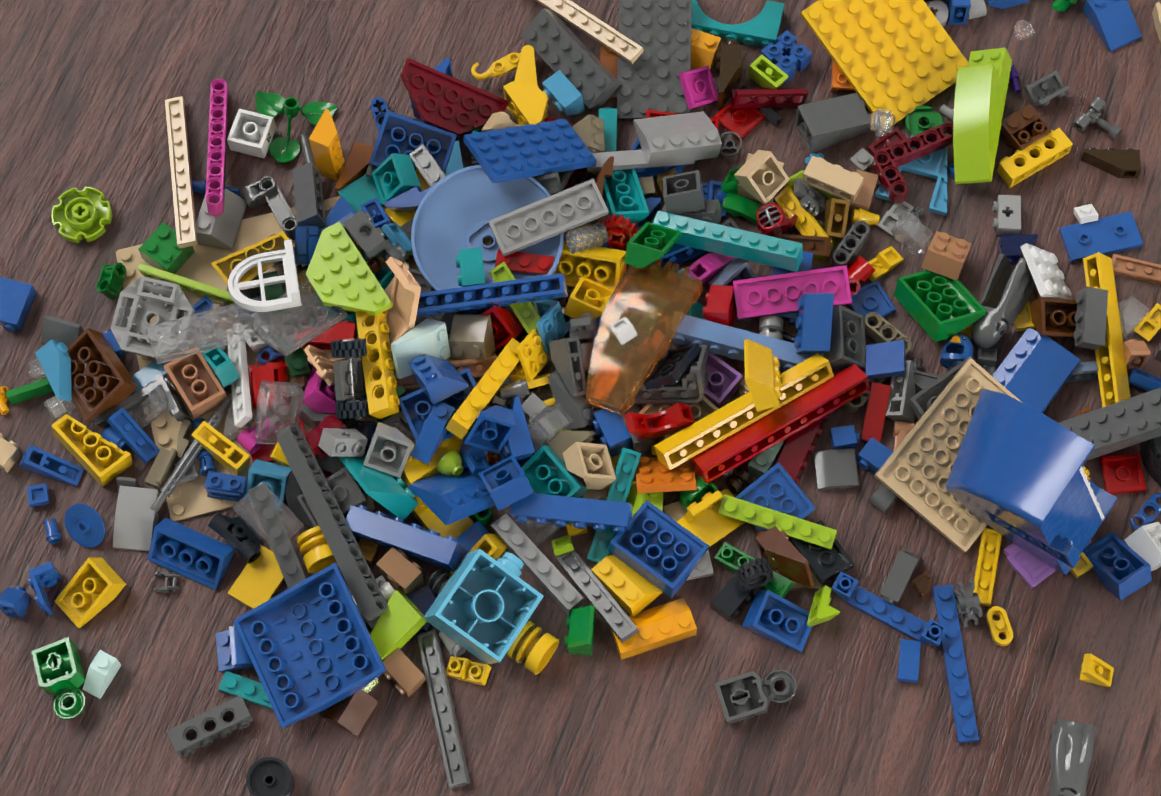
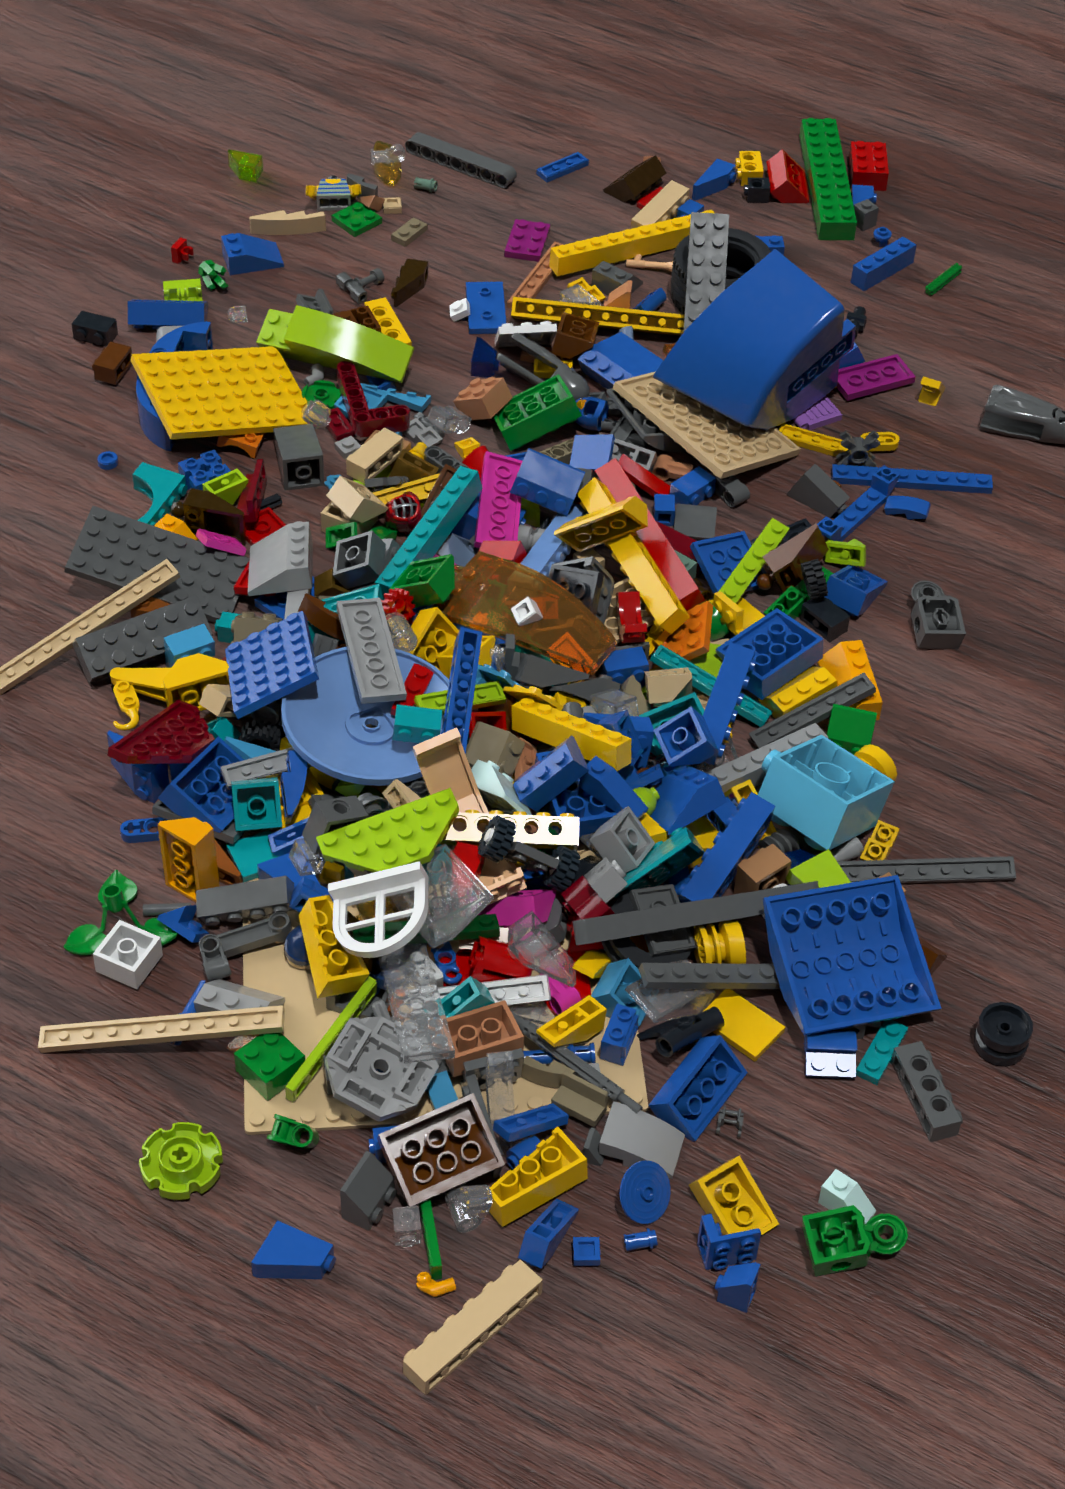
camera: 85 degrees left, 20 degrees down
(57, 368) = (418, 1183): dark azure slope -> none
(217, 147) = (142, 982): dark pink beam -> none
(290, 160) = (181, 922): none -> blue slope
(562, 545) = (745, 740): lime tile -> none
(1010, 206) = (446, 357): light grey brick -> none
(1091, 318) = (583, 311): dark grey brick -> none
(1099, 611) = (874, 377): none -> magenta plate

